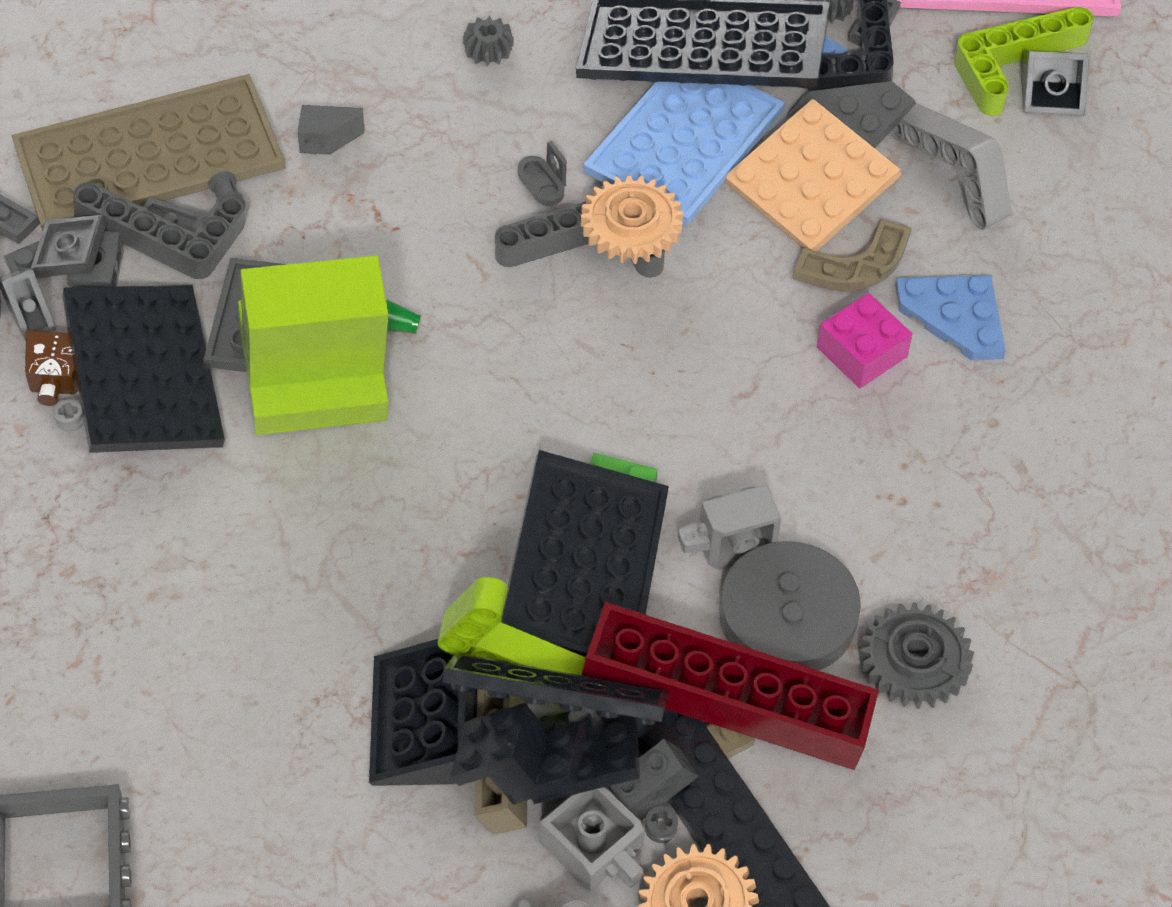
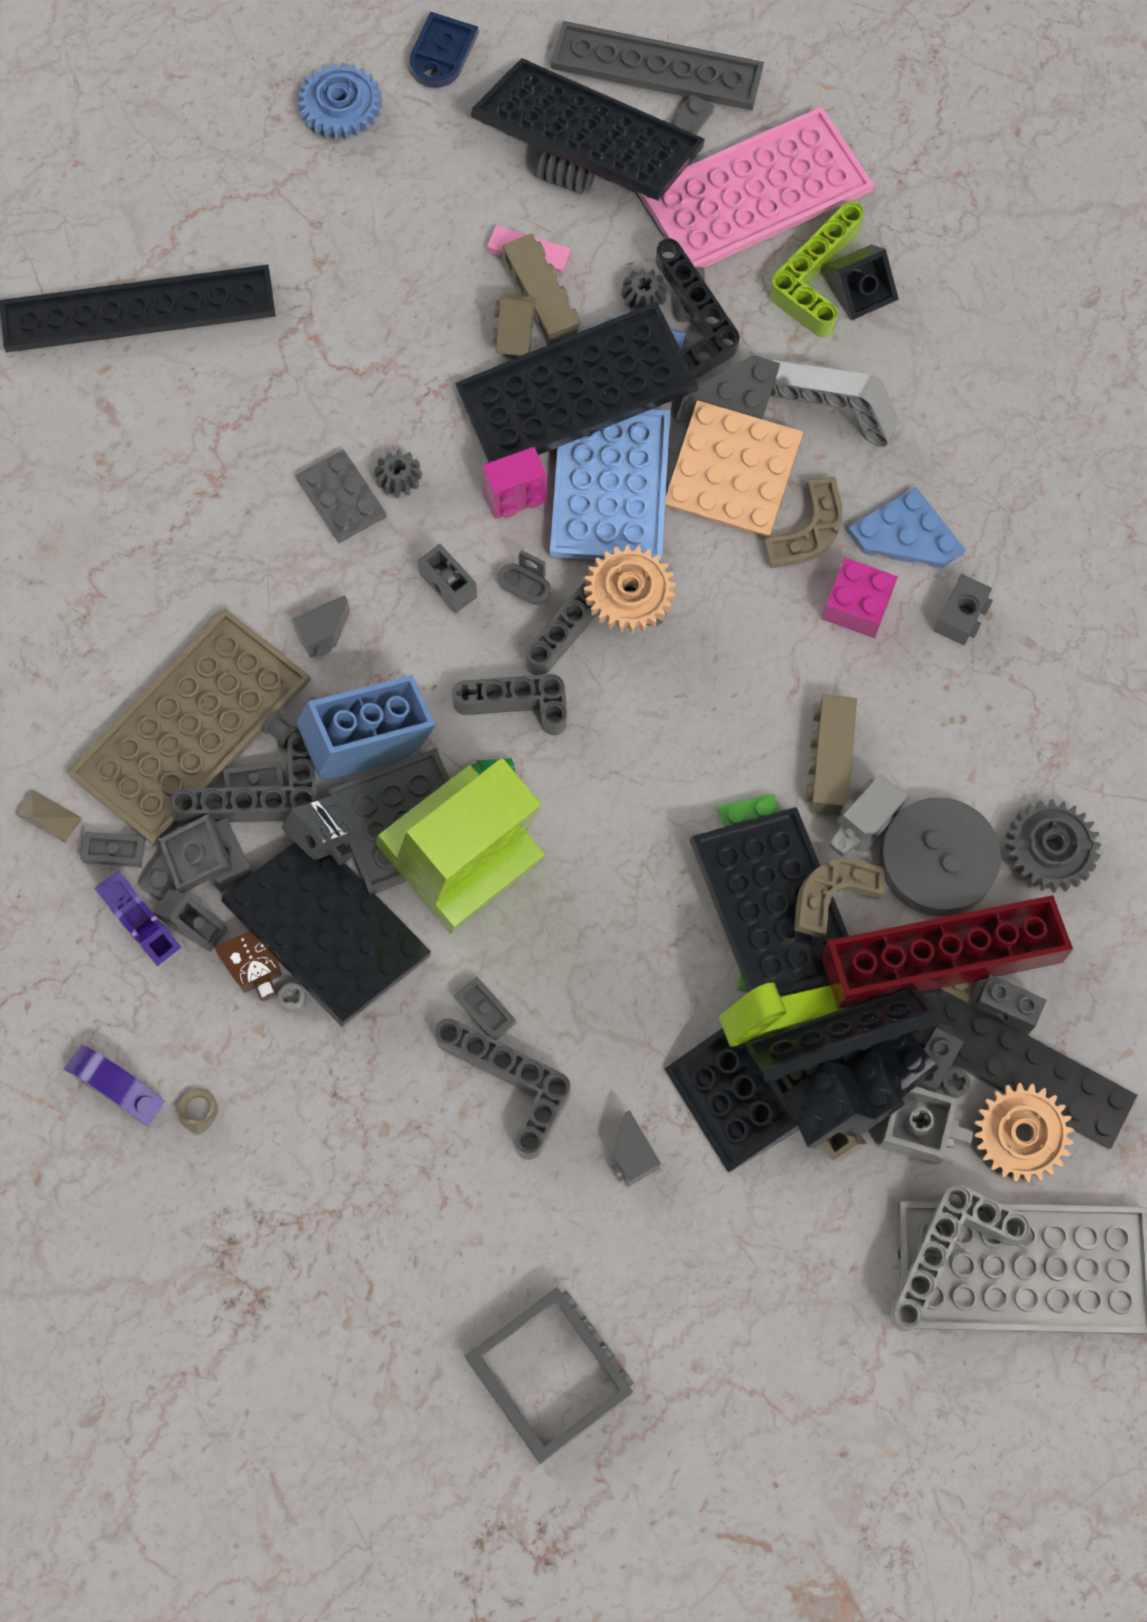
camera: 30 degrees left, 15 degrees up
(195, 281) = (321, 829): none -> dark grey torso
(223, 580) = (511, 1075): none -> dark grey beam
(237, 513) = (484, 1009): none -> dark grey plate
(284, 710) = (633, 1154): none -> dark grey slope
(293, 211) = (365, 727): none -> medium blue brick
(424, 38) = (341, 496): none -> flat silver plate
(469, 139) = (447, 578): none -> dark grey brick
(483, 272) = (510, 702): none -> dark grey beam
(588, 90) = (514, 483): none -> dark pink brick
(656, 564) = (824, 882): none -> dark tan plate
(744, 457) = (832, 754): none -> dark tan brick
(768, 776) = (1010, 1004): none -> dark grey brick
(966, 401) = (969, 595): none -> dark grey brick

